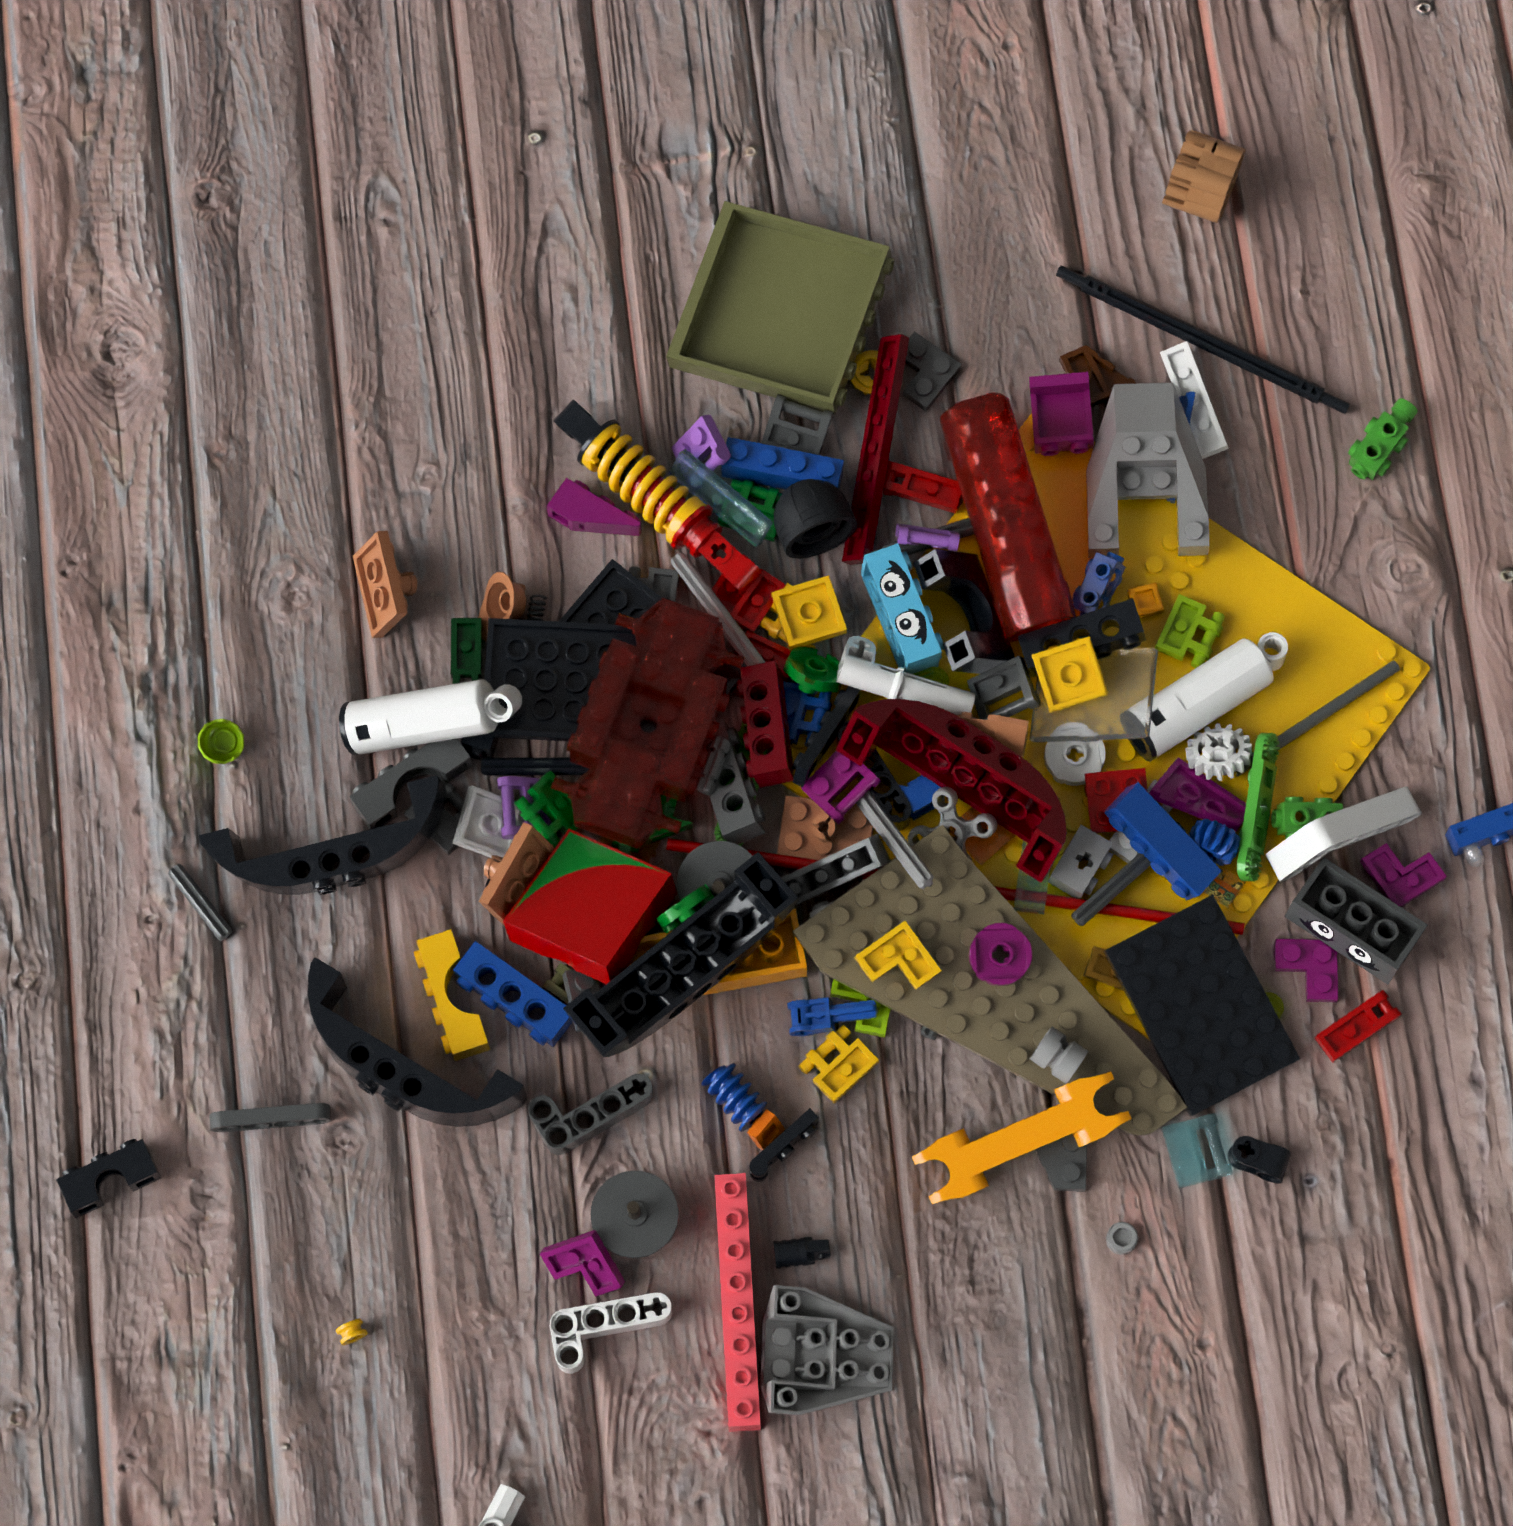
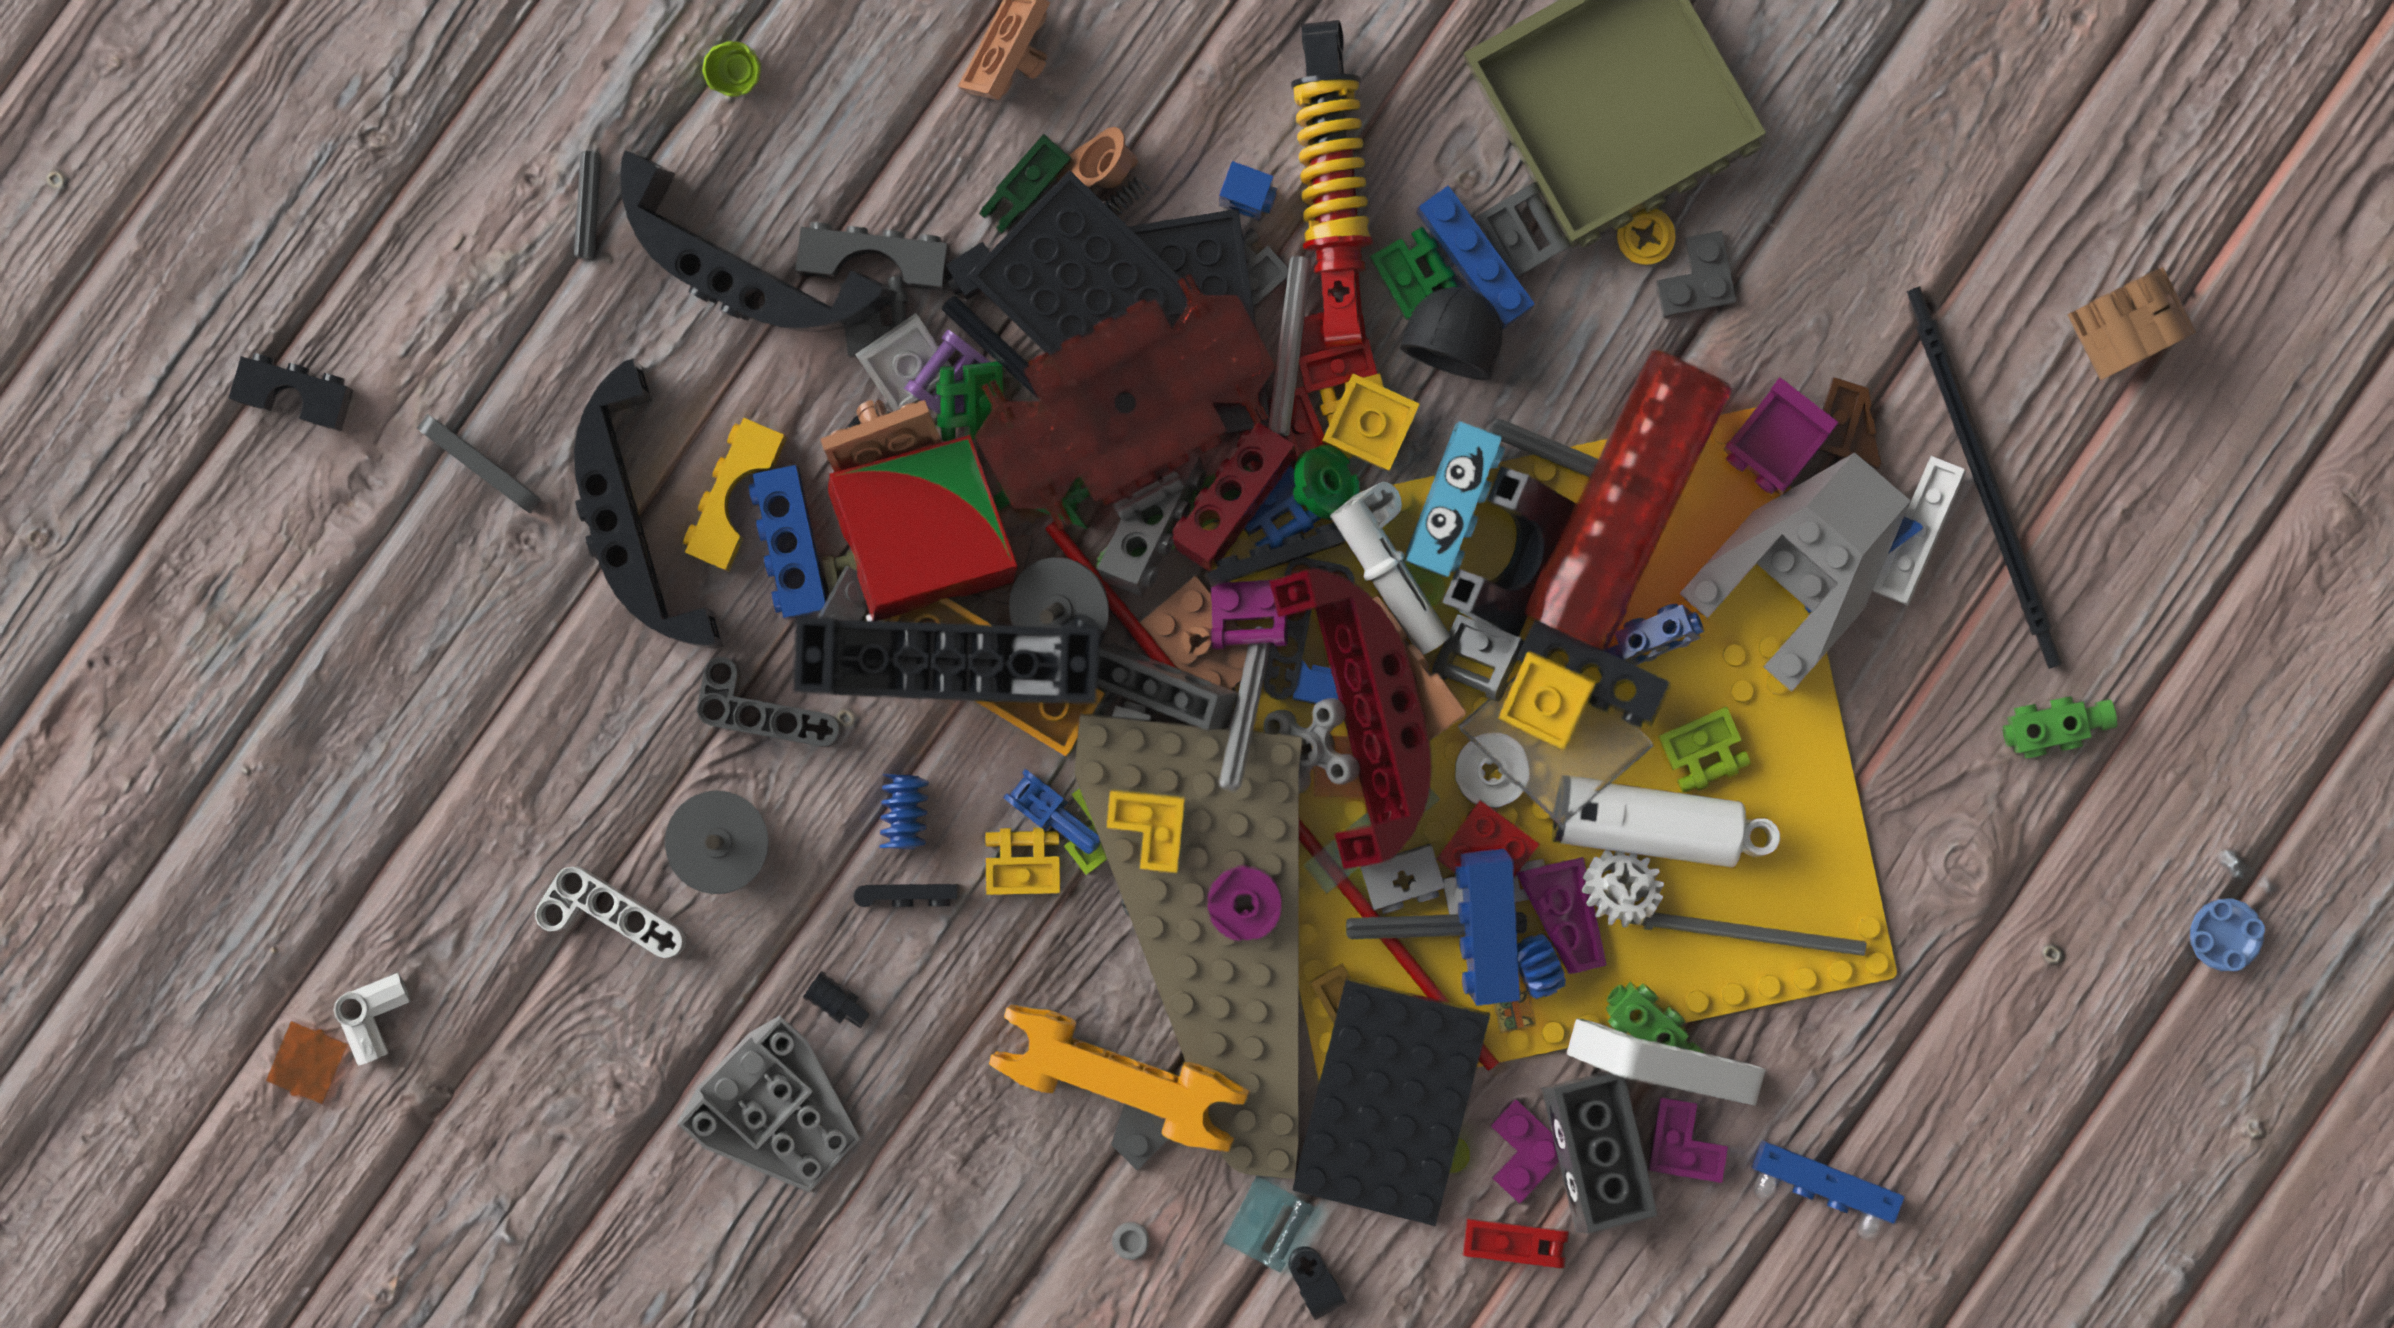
camera: 40 degrees right, 15 degrees up
(351, 1331) = (385, 722): yellow bush -> none
(425, 716) = (930, 216): white piece -> none
(585, 512) = (1256, 137): magenta slope -> none
(587, 1255) = (644, 841): magenta plate -> none
(608, 541) = (1248, 191): none -> blue brick
(684, 908) = (998, 606): green plate -> none
(702, 440) = (1413, 166): medium lavender plate -> none
(721, 497) = (1389, 238): clear light blue tile -> none
(737, 1302) = (741, 997): coral brick -> none
(765, 1129) = (903, 866): orange plate -> none
(876, 446) = (1579, 315): dark red plate -> none
(922, 487) = (1587, 388): red plate -> none
(930, 536) = (1539, 450): medium lavender plate -> none
(1058, 1055) = (1214, 1039): light grey wheel -> none
(1146, 599) = (1693, 682): light orange tile -> none
(1258, 806) = (1610, 969): bright green piece -> none

